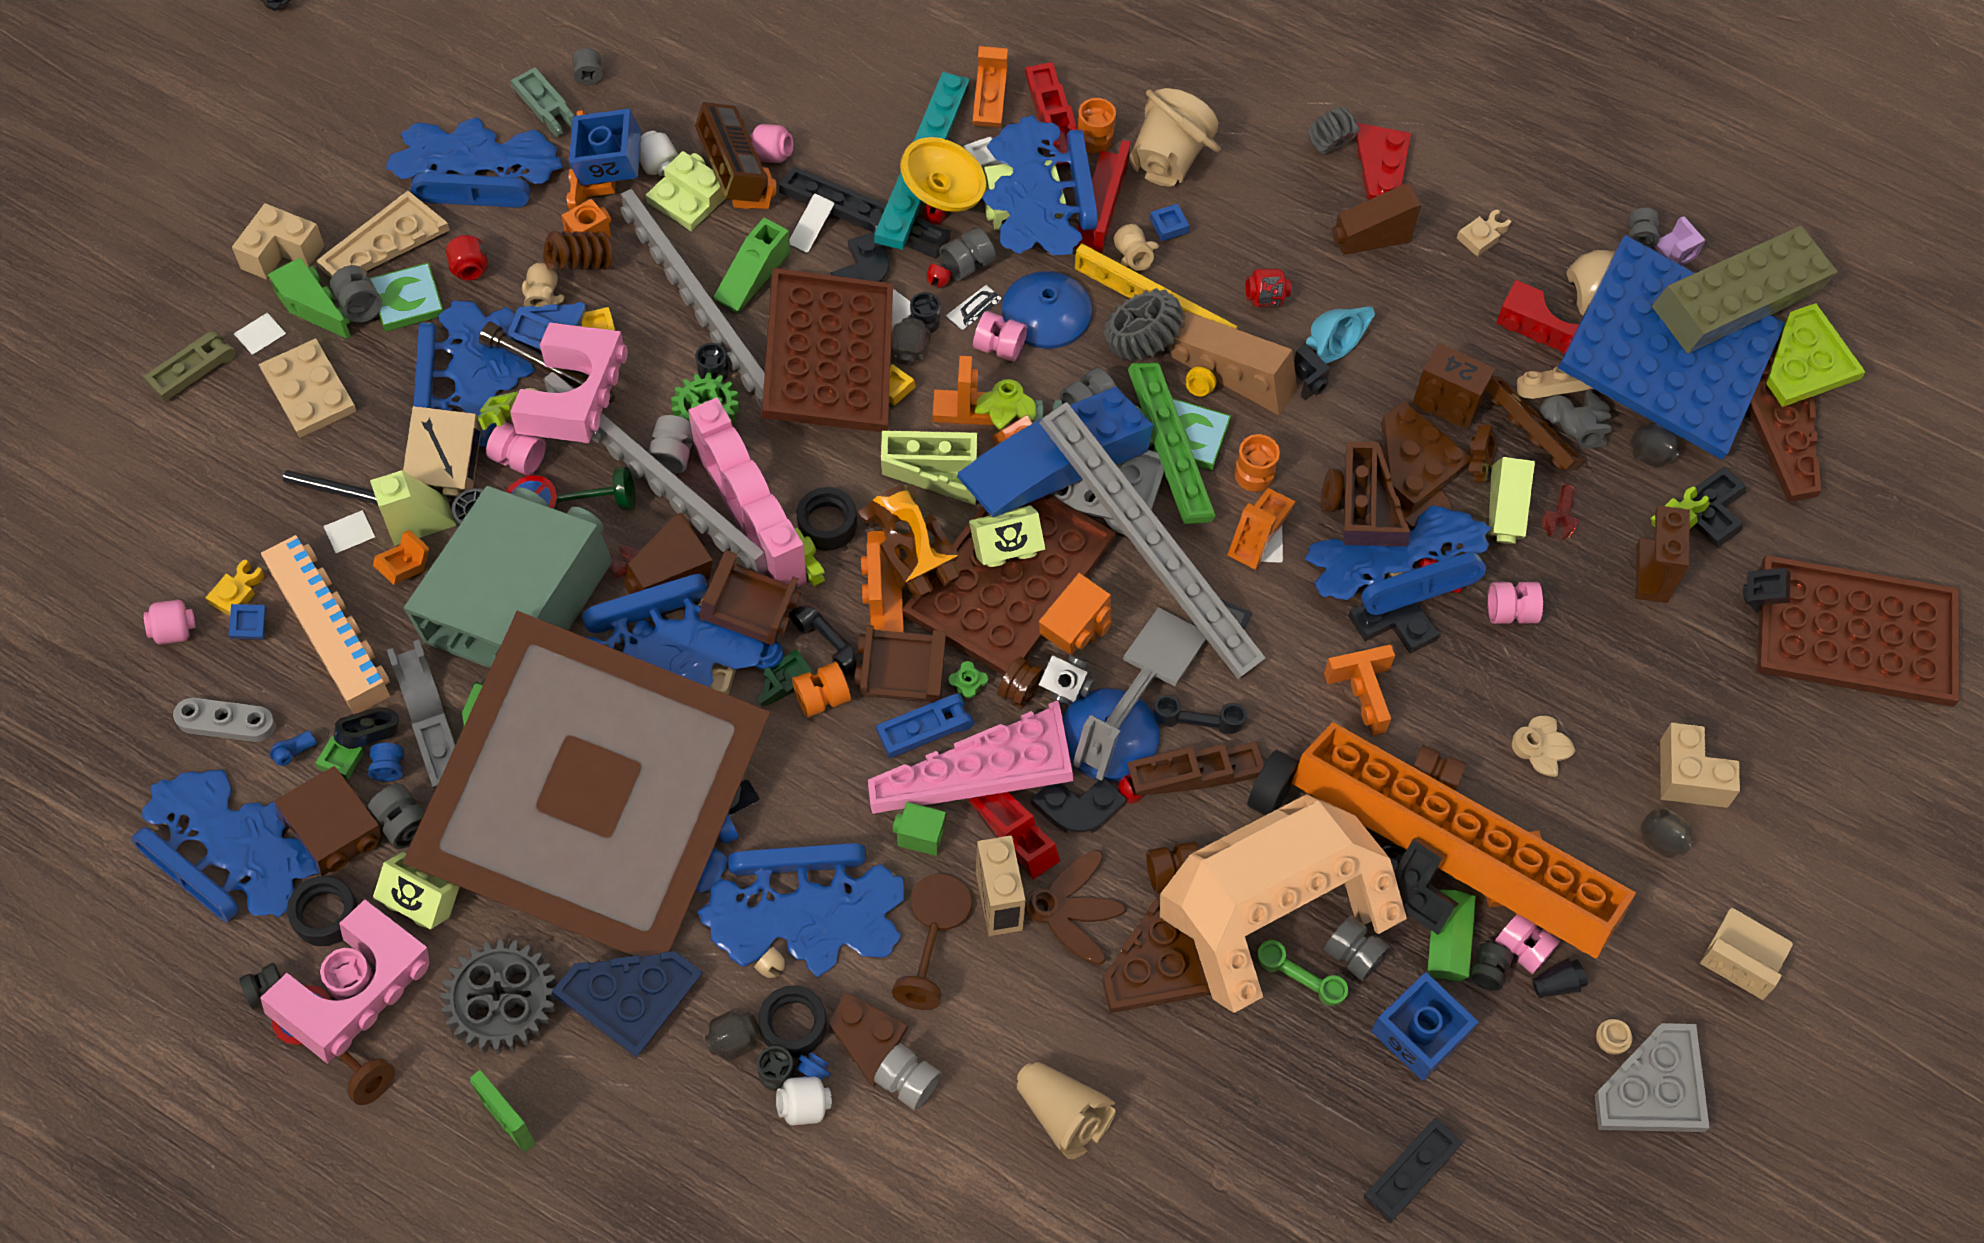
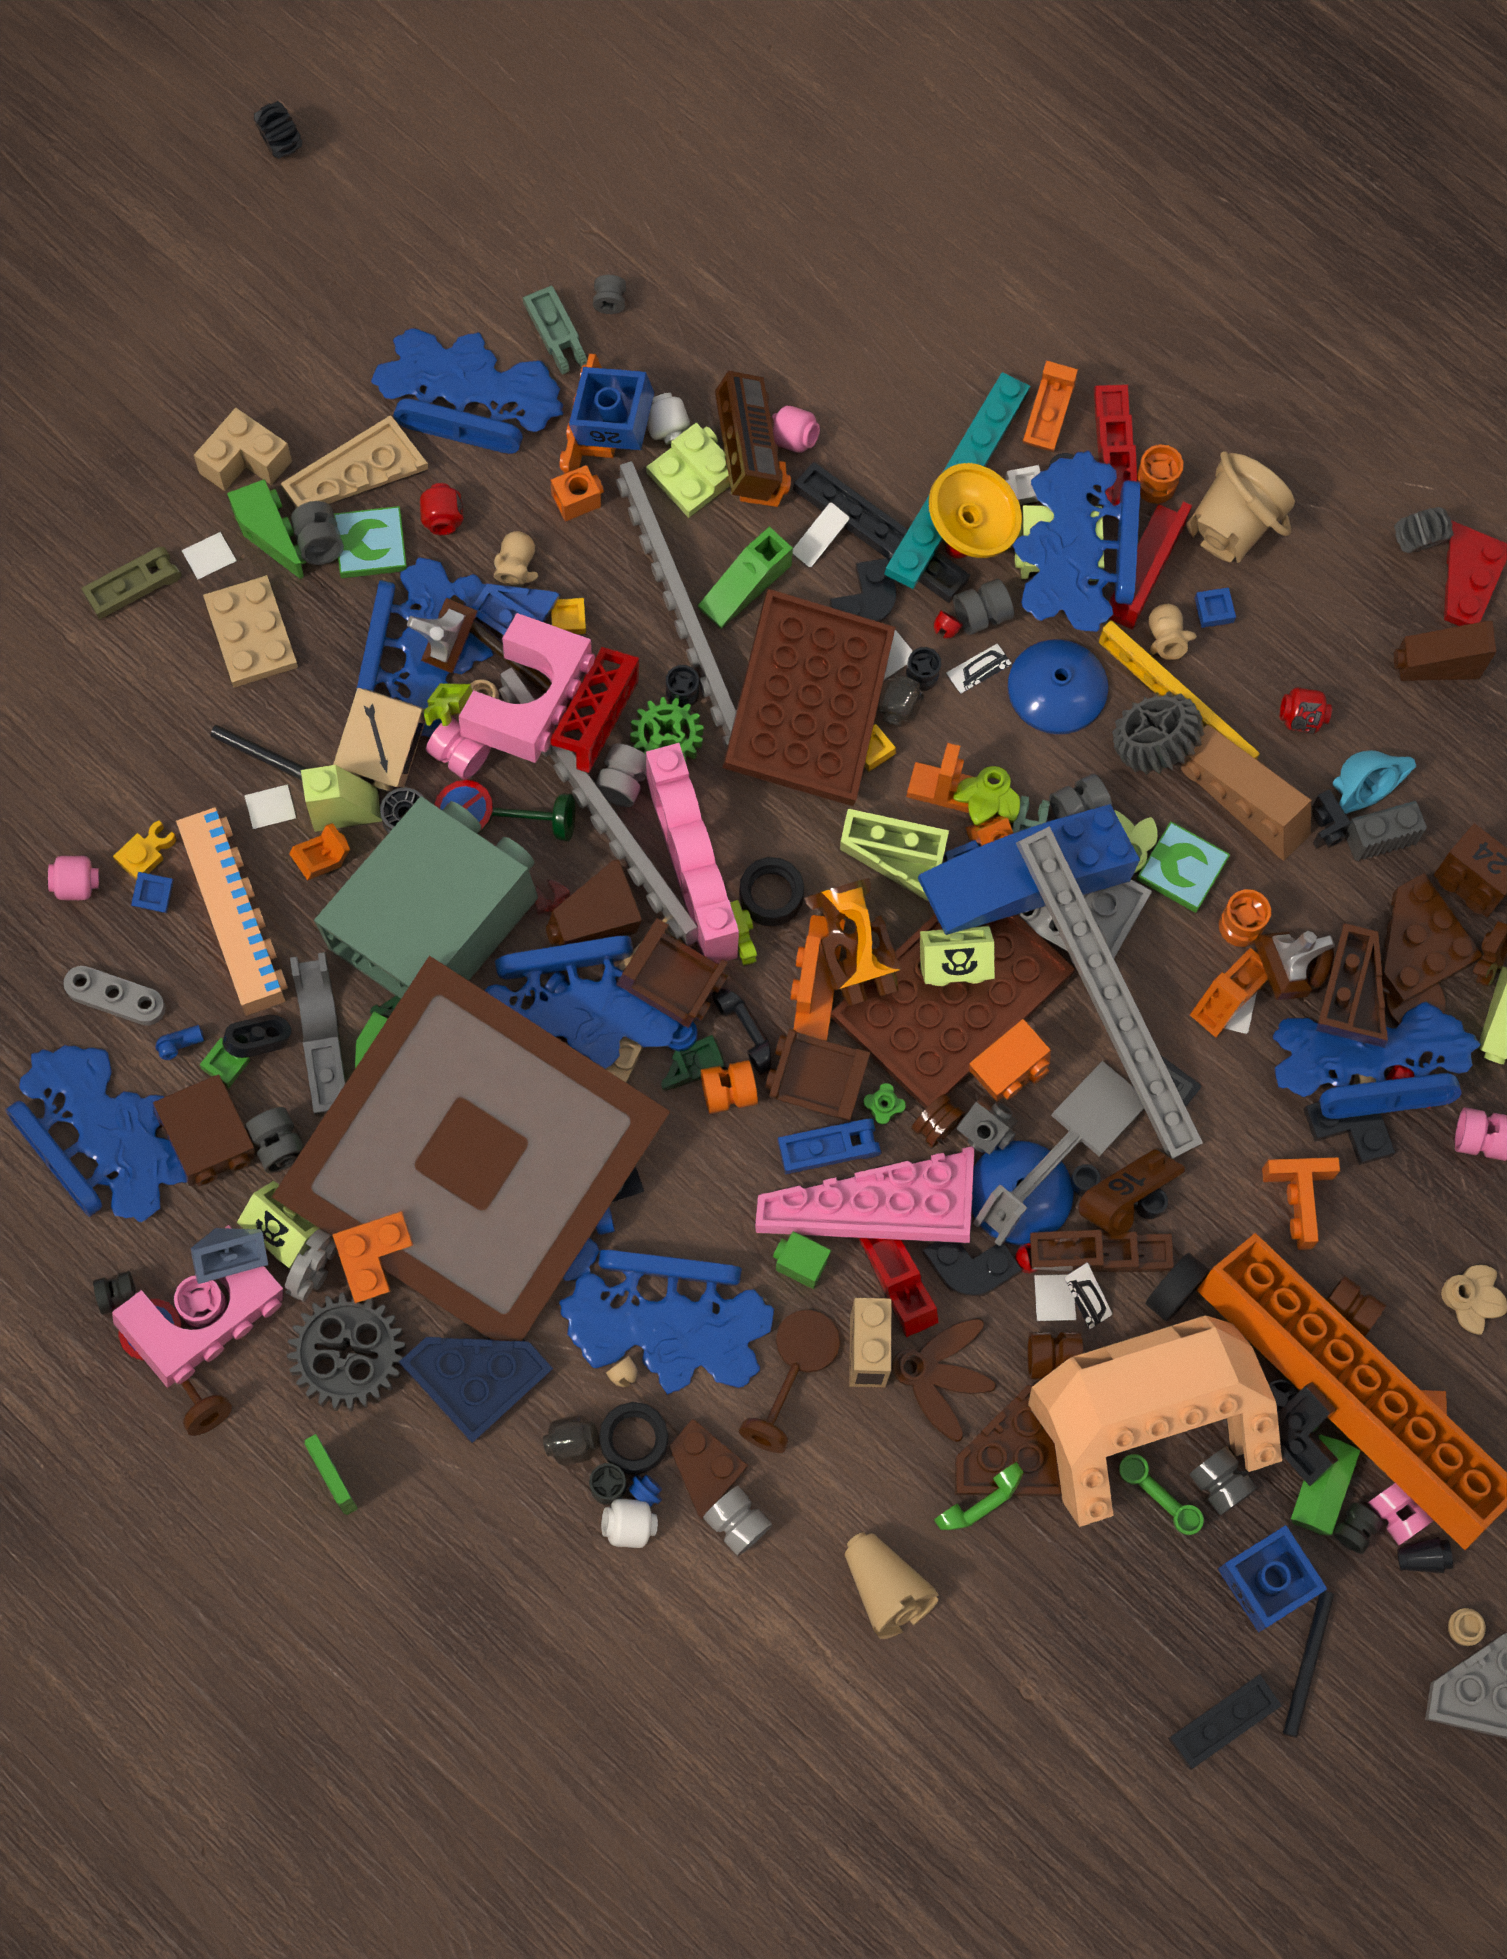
camera: 10 degrees right, 10 degrees up
(304, 894) = (169, 1203): black tyre -> none
(368, 922) = (228, 1253): none -> sand blue slope
(386, 762) = (271, 1077): blue wheel -> none
(449, 923) = (309, 1269): none -> light grey plate
(488, 353) = (446, 634): none -> piece
(498, 895) = (361, 1253): none -> orange plate
(577, 249) = (561, 525): reddish brown piece -> none
(647, 387) = (606, 713): none -> red fence
(1009, 340) = (1009, 719): bright pink wheel -> none
(1114, 1033) = (1007, 1482): none -> bright green bar
(1162, 819) = (1053, 1298): none -> white sticker
(1171, 443) = (1157, 876): bright green tile -> none
(1193, 809) = (1088, 1295): none -> sticker
(1196, 720) = (1113, 1199): none -> reddish brown door
(1200, 381) = (1205, 808): yellow plate -> none
(1303, 489) = (1287, 961): none -> piece
(1362, 371) = (1385, 830): none -> dark grey brick
(1476, 1124) = (1308, 1664): none -> black bar

